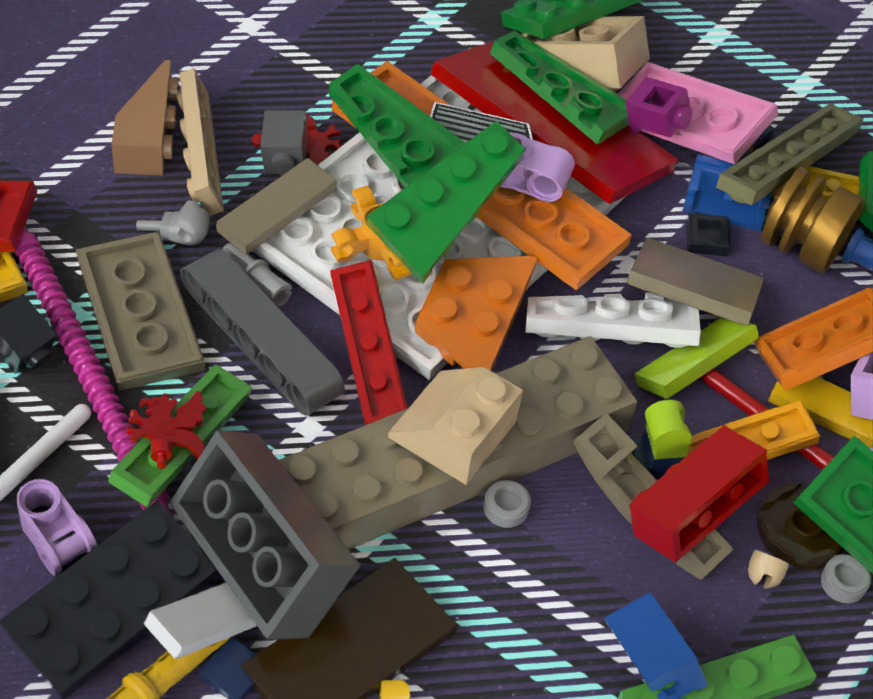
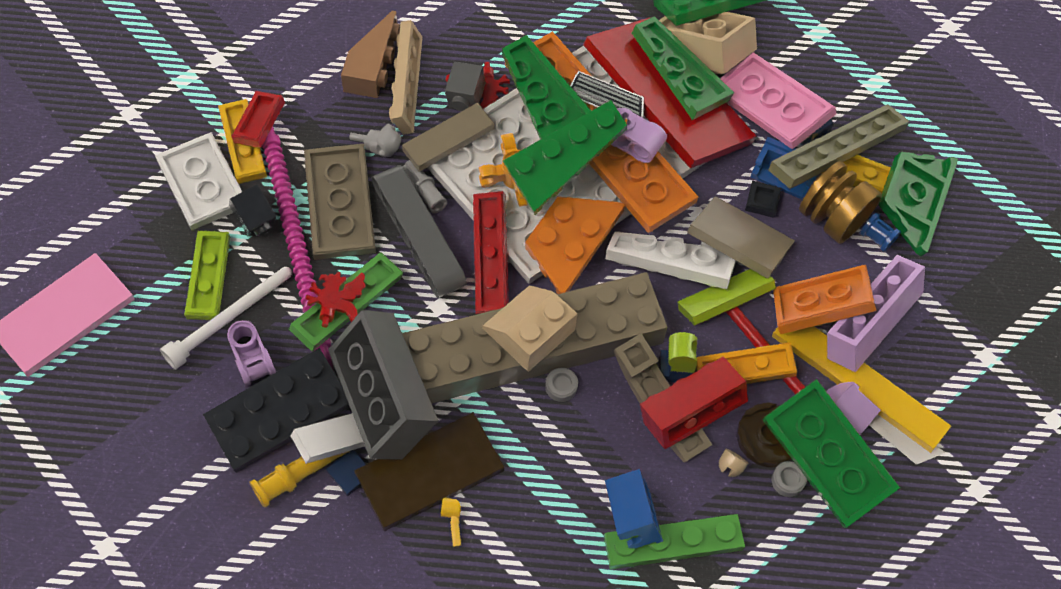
camera: 15 degrees right, 10 degrees up
(659, 107) = (748, 102): magenta brick -> none

